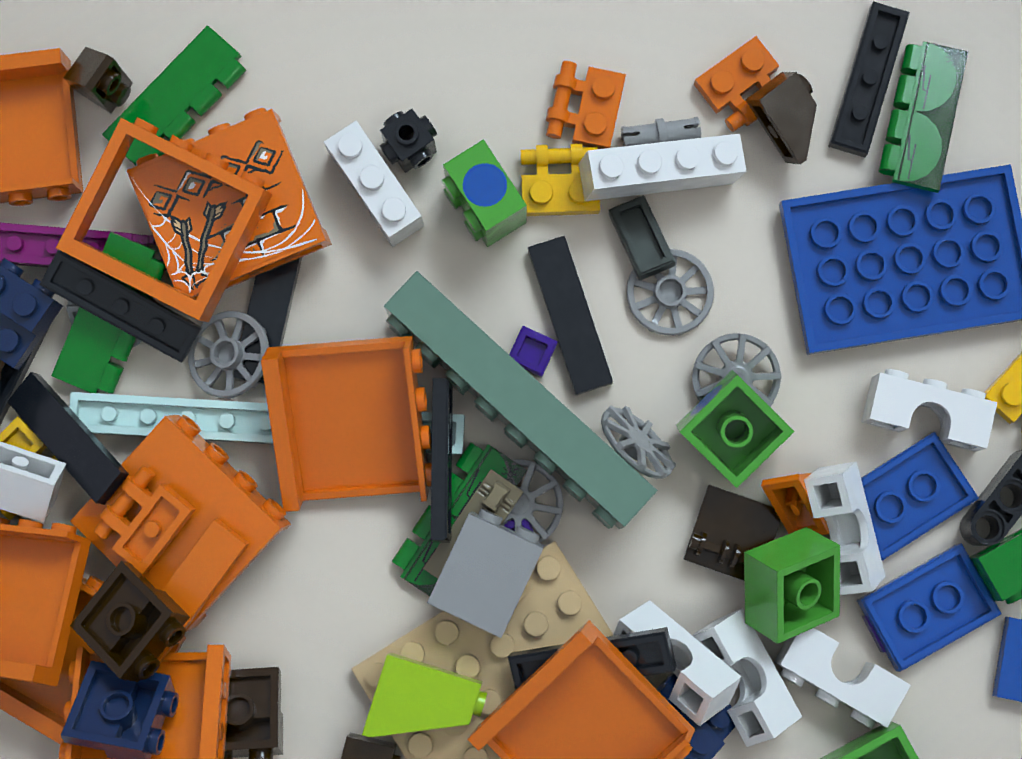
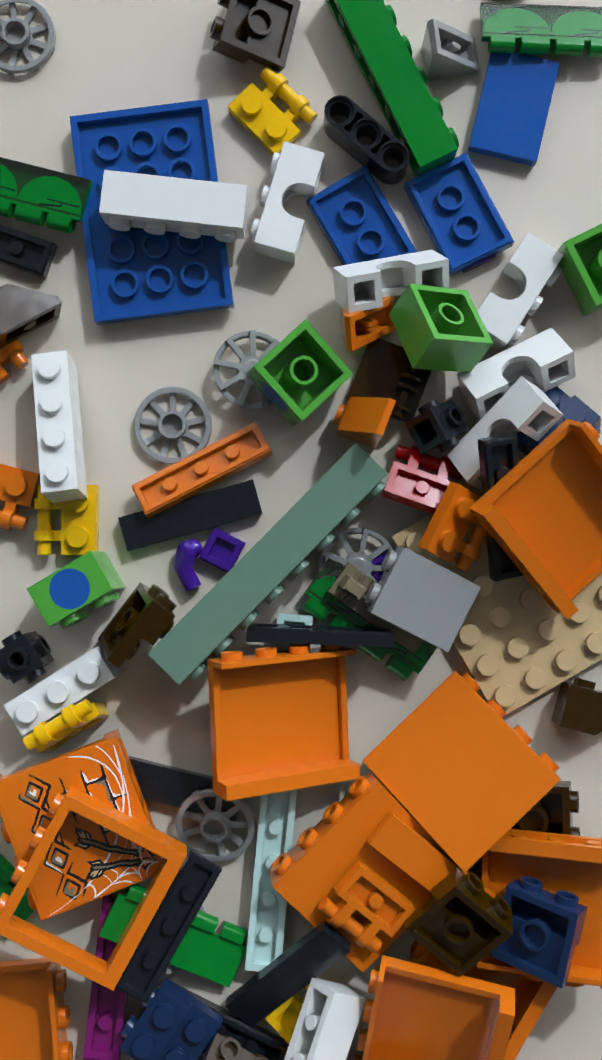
camera: 85 degrees left, 5 degrees up
(296, 625) = (462, 769): none -> orange panel
(333, 188) = (66, 726): none -> yellow plate
(421, 698) = (529, 658): lime slope -> none
(457, 266) = (143, 615): none -> dark brown plate
(516, 309) = (184, 563): none -> dark purple arm
(568, 602) = (449, 526): none -> orange plate
(610, 570) = (417, 487): none -> plate
(621, 325) = (201, 470): none -> orange tile
(636, 442) = (309, 460): light grey wheel -> none
(641, 237) = (123, 448): pearl dark grey tile -> none
(661, 132) = (26, 426): light grey pin -> none
(681, 587) = (437, 426): none -> black brick
(684, 502) = (364, 419): none -> orange slope
(914, 283) = (174, 205): none -> white brick

